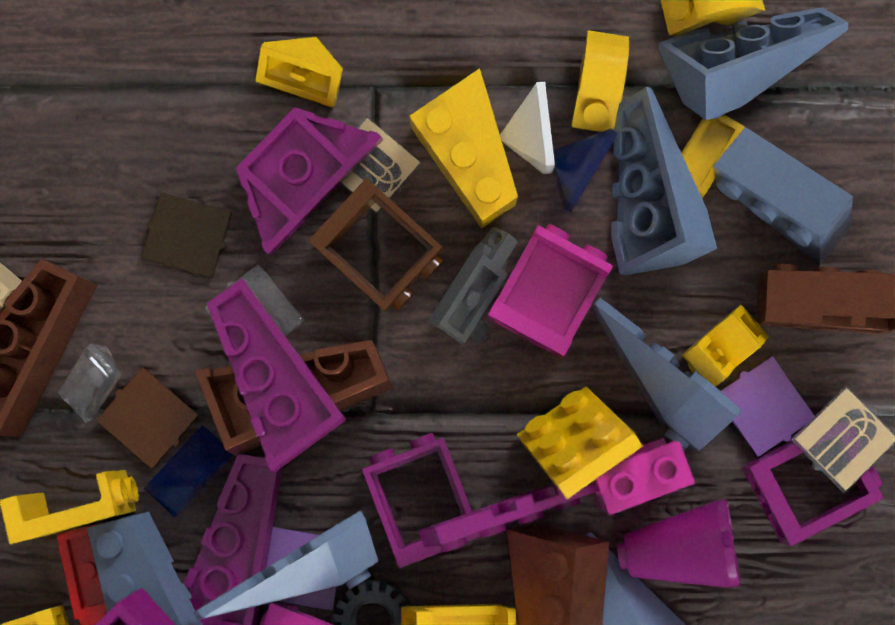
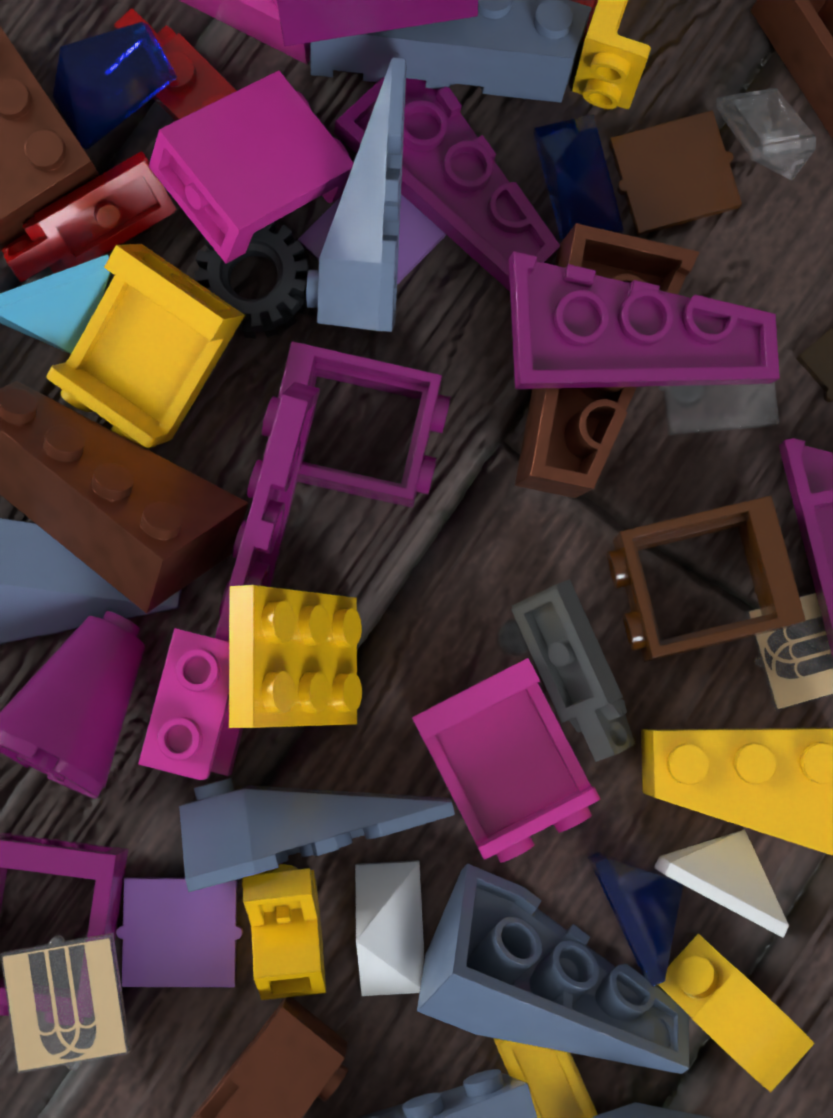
camera: 120 degrees right, 0 degrees up
(682, 294) = (389, 927): none -> white slope

